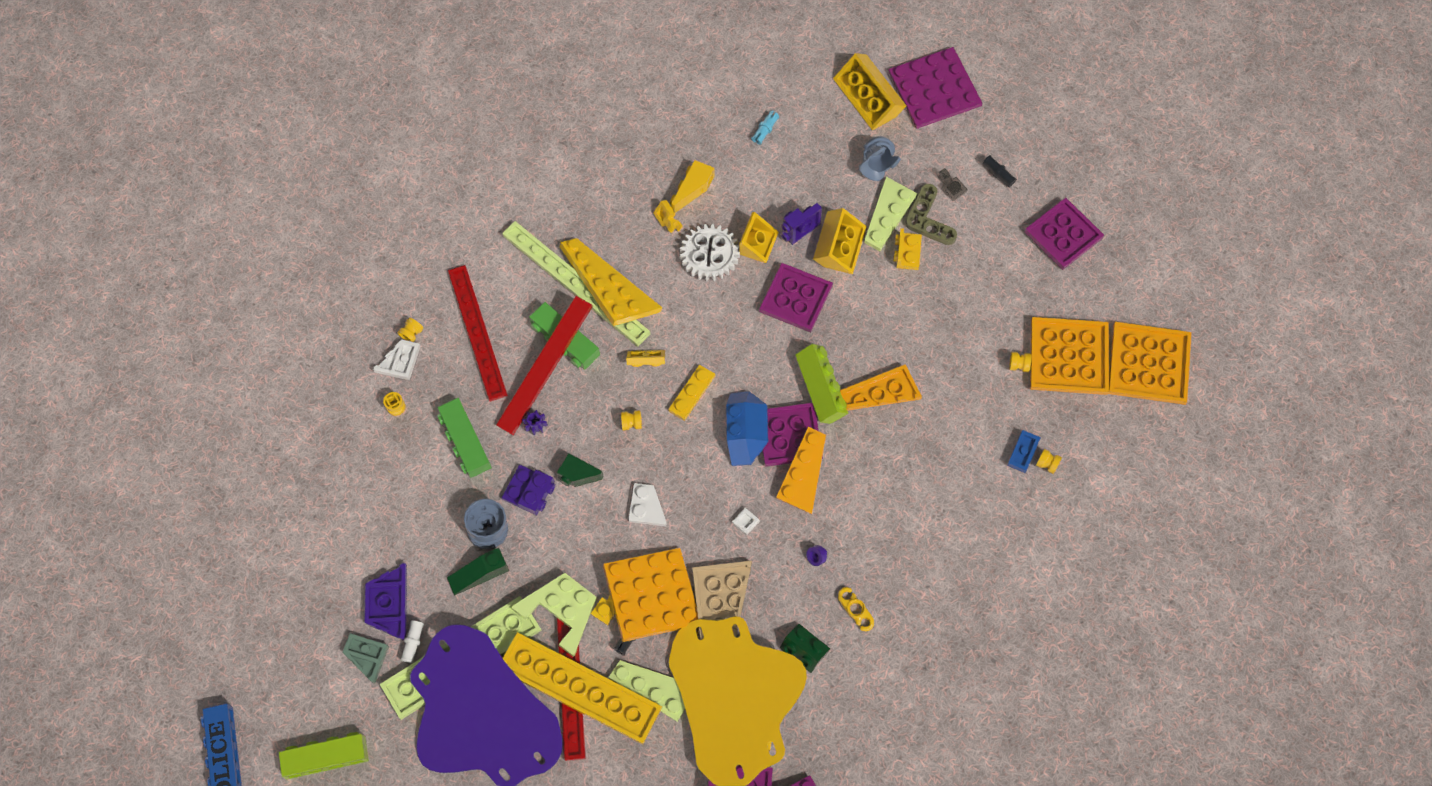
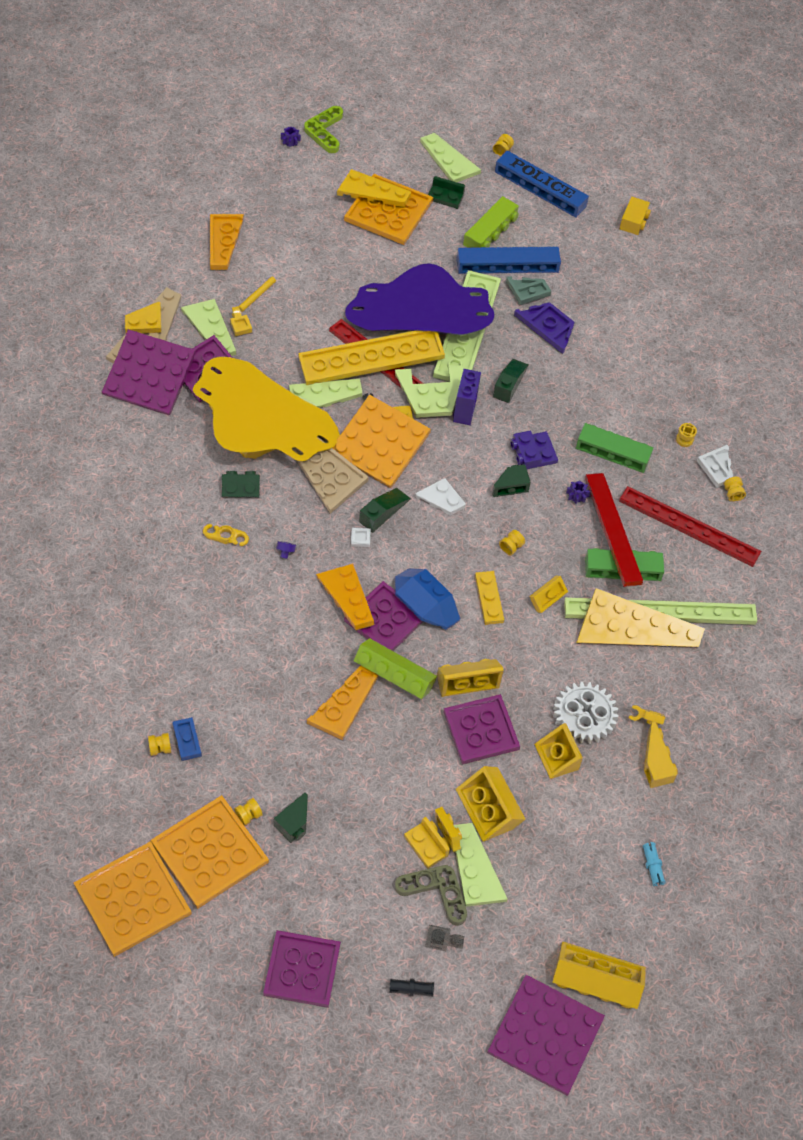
camera: 130 degrees right, 10 degrees down
(182, 657) = (635, 216): none -> yellow brick
(351, 701) = (509, 260): none -> blue brick
(412, 641) = (508, 313): white pin -> none
(480, 515) = (536, 401): sand blue wheel -> none
(541, 573) = (467, 397): none -> dark purple window
(704, 530) = (382, 508): none -> dark green slope
(771, 335) = (469, 677): none -> yellow slope
(799, 224) = (537, 784): dark purple plate -> none
(878, 158) = (530, 905): sand blue helmet -> none
(889, 235) = (445, 824): none -> yellow plate
(991, 332) = (293, 819): none -> dark green slope

